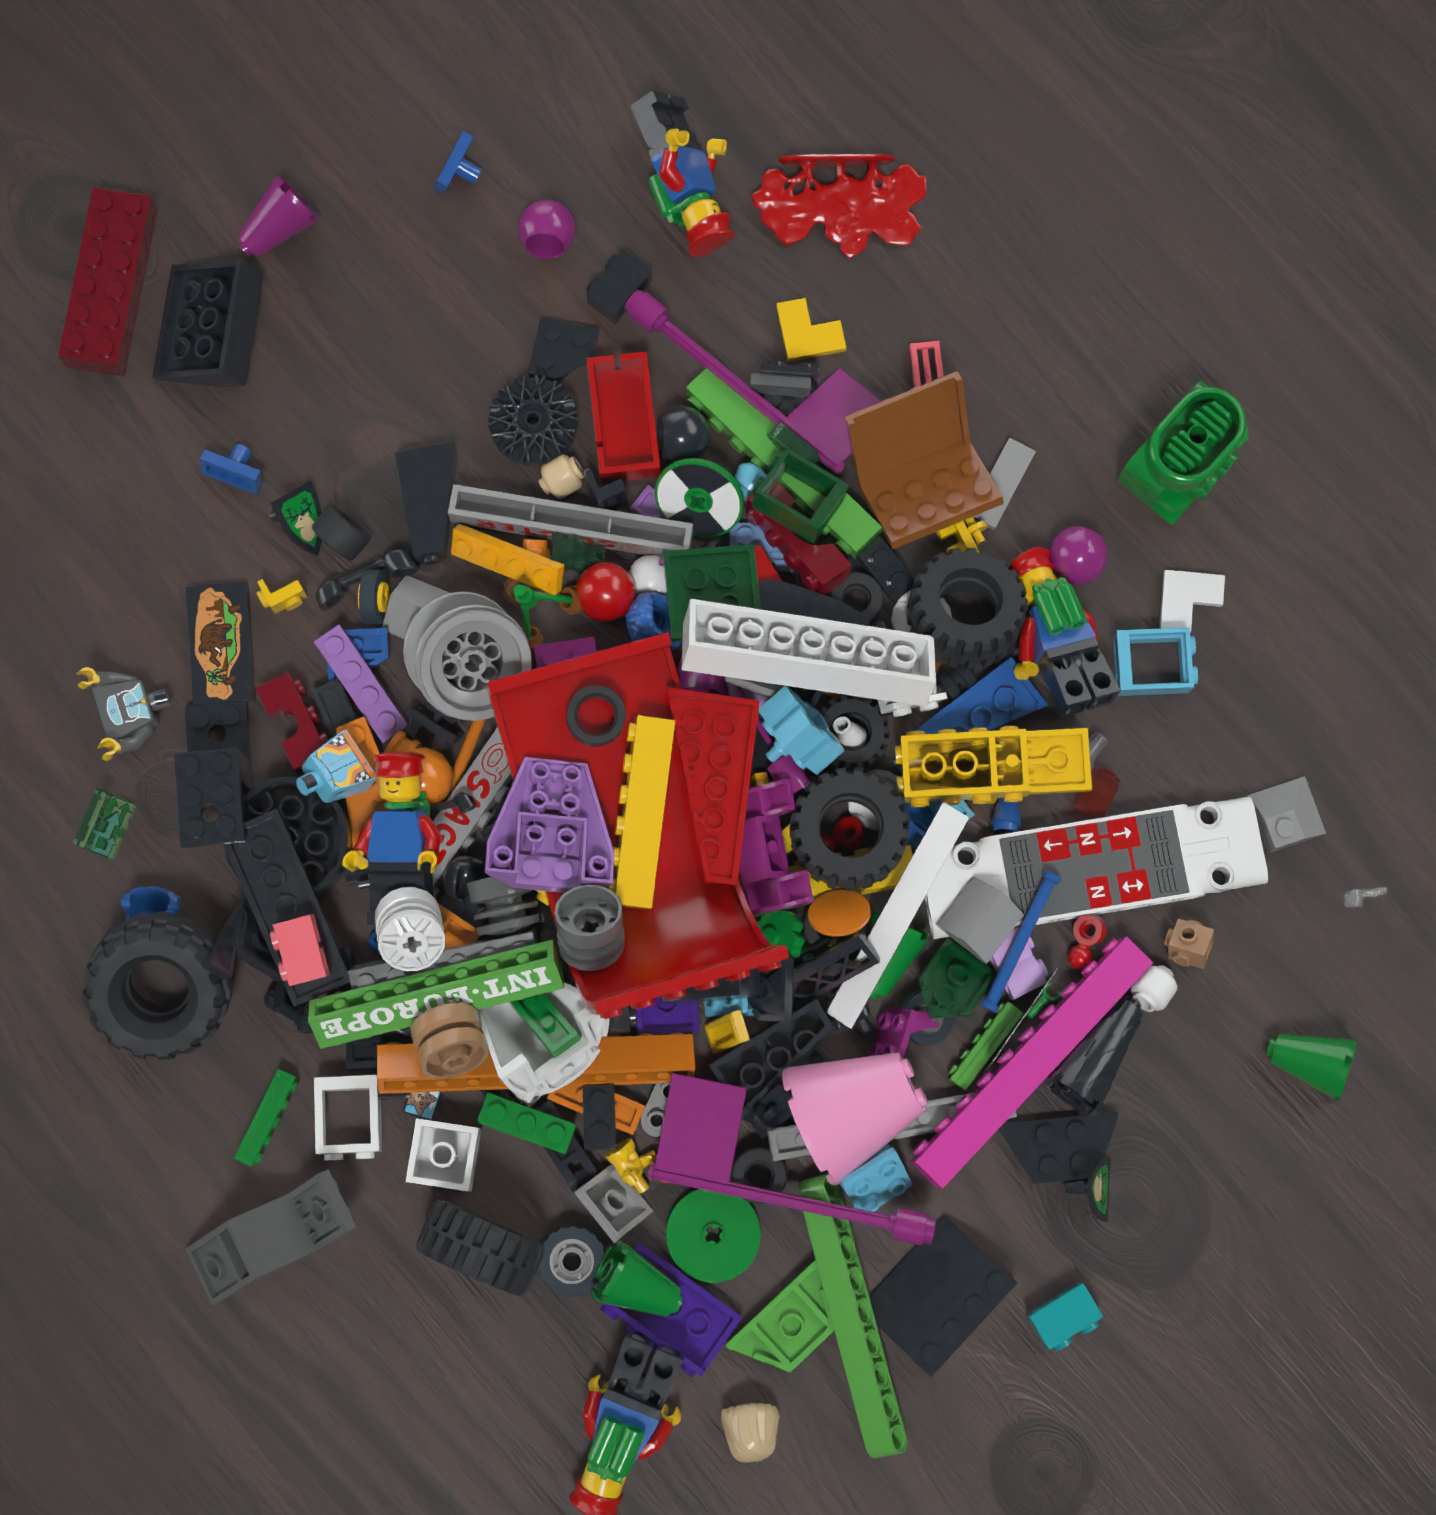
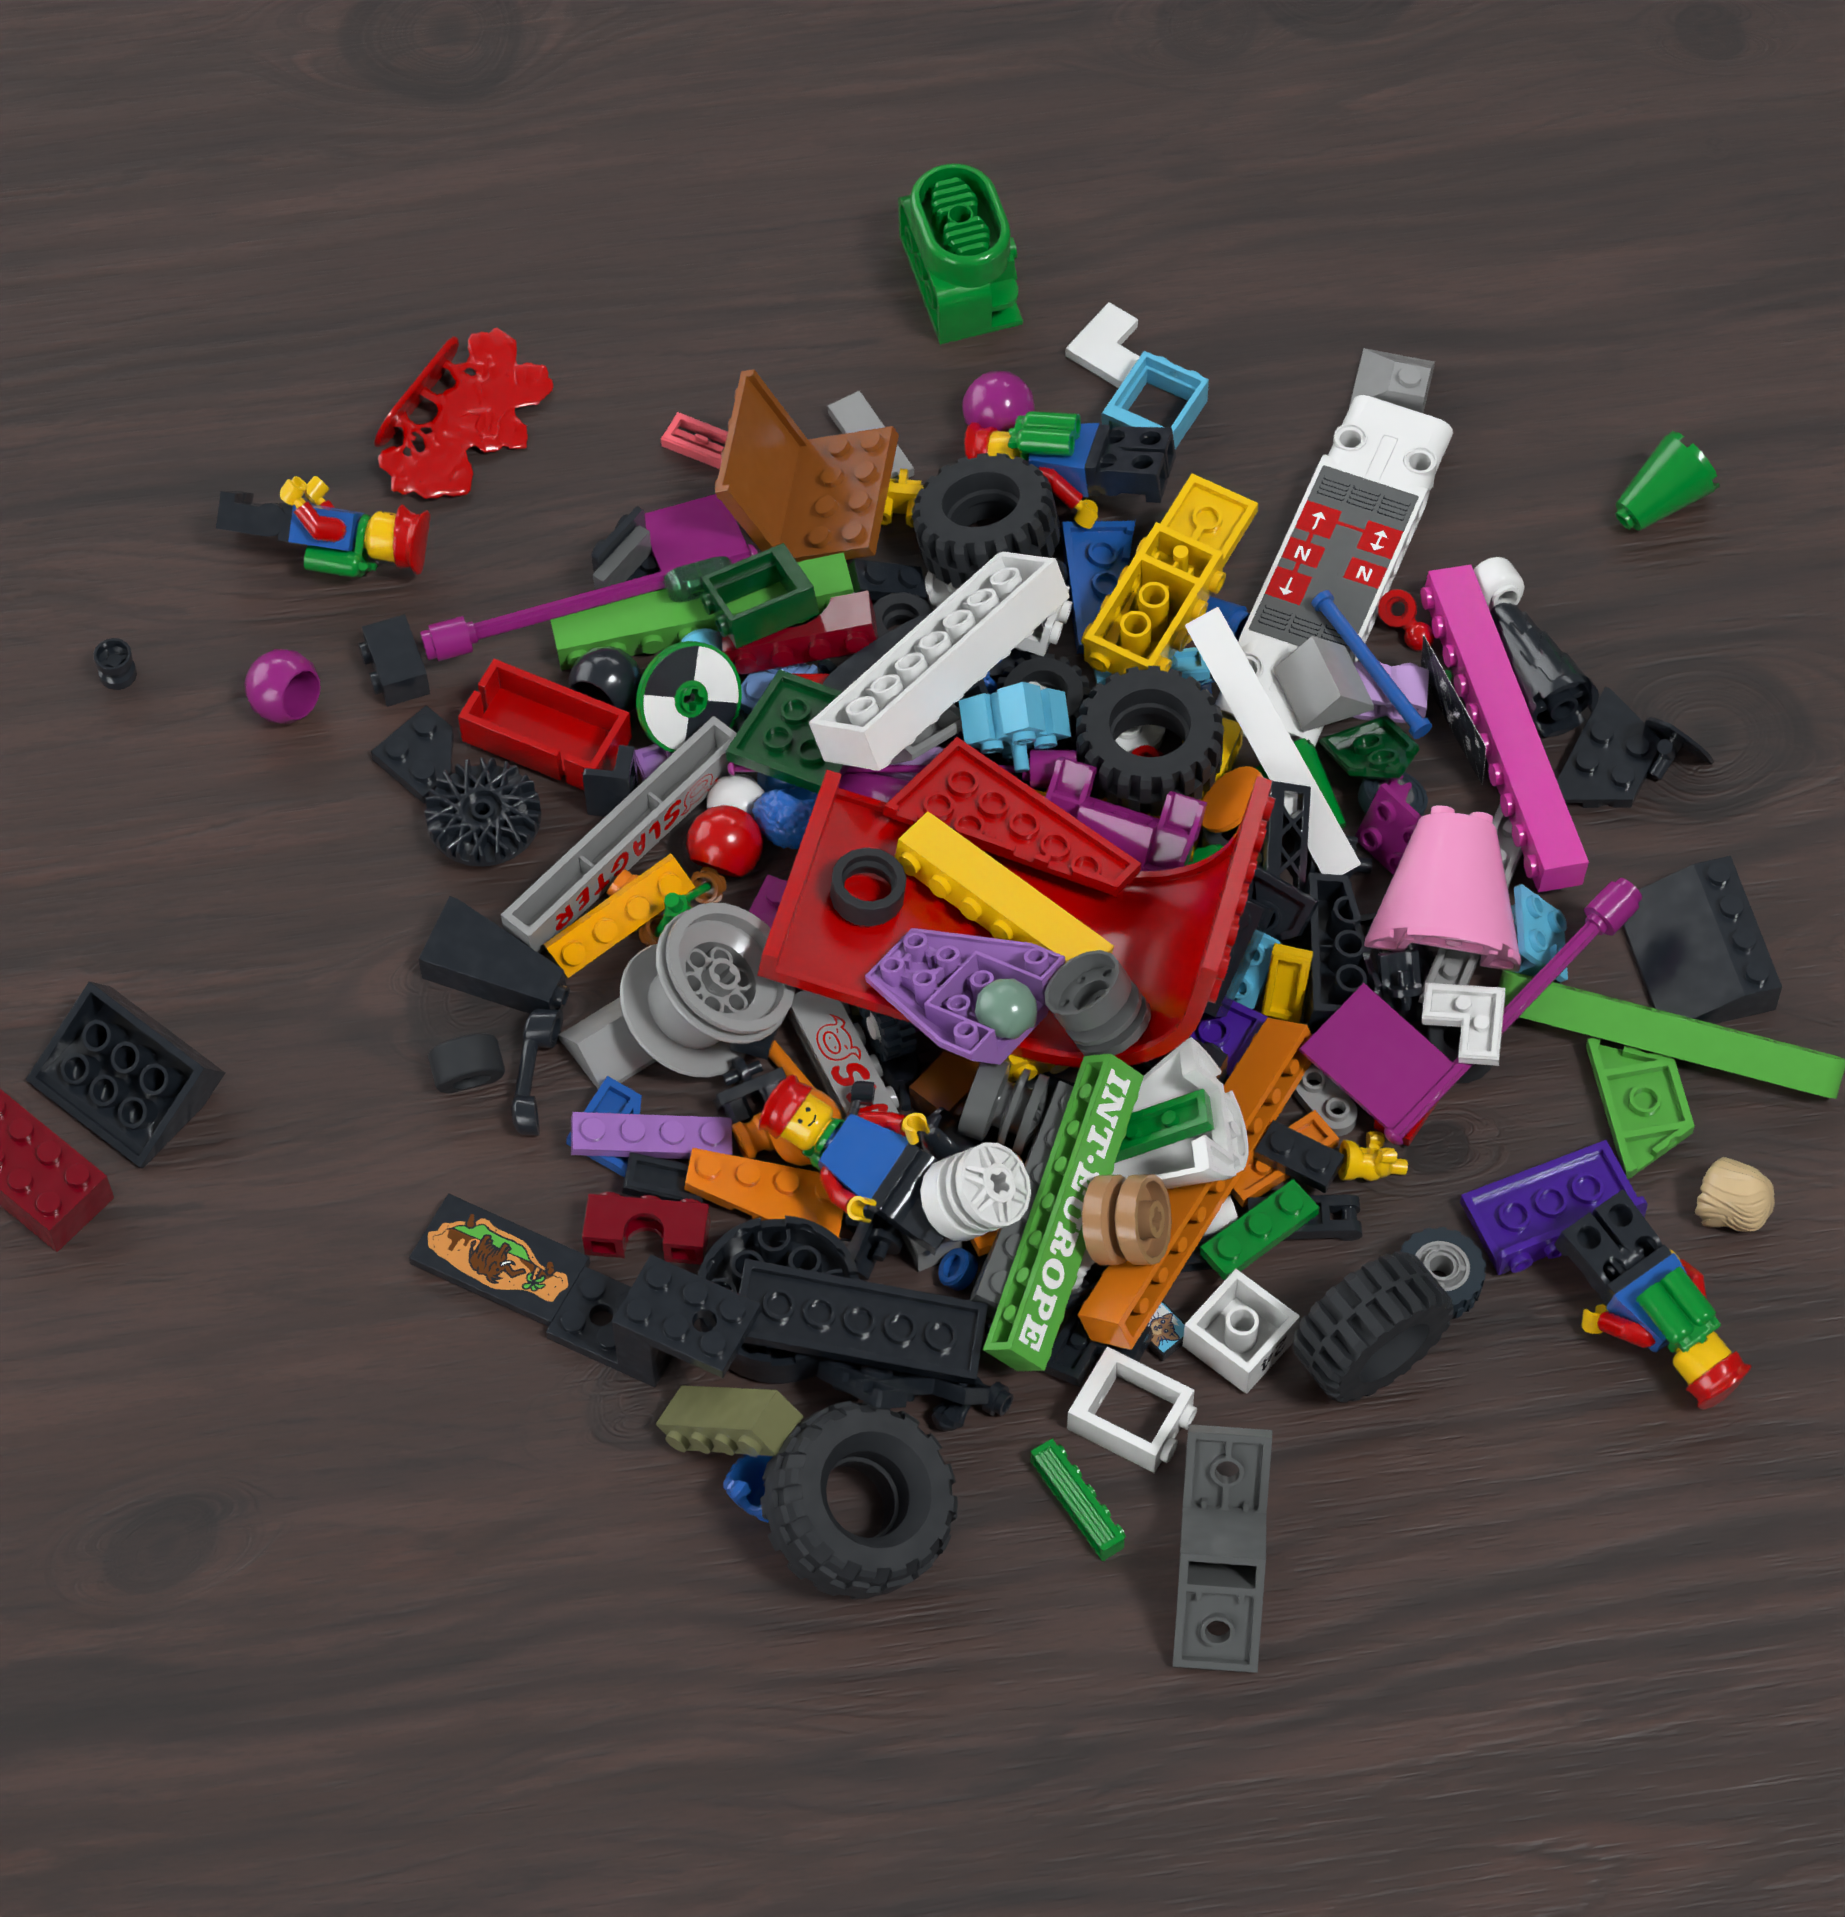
camera: 55 degrees left, 20 degrees down
(104, 824) = (622, 1489): clear green panel -> none
(124, 709) = (504, 1390): dark grey torso -> none
(163, 872) = (728, 1420): none -> olive brick
(232, 469) = (311, 1137): blue tile -> none
(275, 219) = (61, 935): magenta cone -> none
(284, 598) = (491, 1176): yellow bracket -> none
(296, 514) = (417, 1100): shield -> none
(299, 950) = (921, 1321): coral piece -> none
(336, 770) = (739, 1190): medium azure torso -> none
(373, 596) = (564, 1068): black wheel -> none
(458, 165) = (137, 739): blue tile -> none
(503, 104) = (115, 664): none -> black wheel
(547, 869) = (1006, 1008): none -> sand green hair
(561, 476) = (563, 822): tan head -> none
(575, 553) = (659, 843): clear green hips -> none
(613, 1203) = (1402, 1204): light grey slope -> none
(634, 1283) = (1502, 1208): green cone -> none
(712, 1260) = (1471, 1139): green piece -> none
(772, 1178) = (1475, 1010): none -> white tile
(804, 340) = (578, 530): yellow tile -> none
(984, 1045) = (1457, 766): bright green piece -> none
(1064, 1317) = (1791, 844): teal brick -> none
(1102, 794) = (1264, 531): clear red bracket -> none
(1189, 943) = (1471, 526): medium nougat brick -> none
(1355, 897) = (1519, 371): clear hand -> none

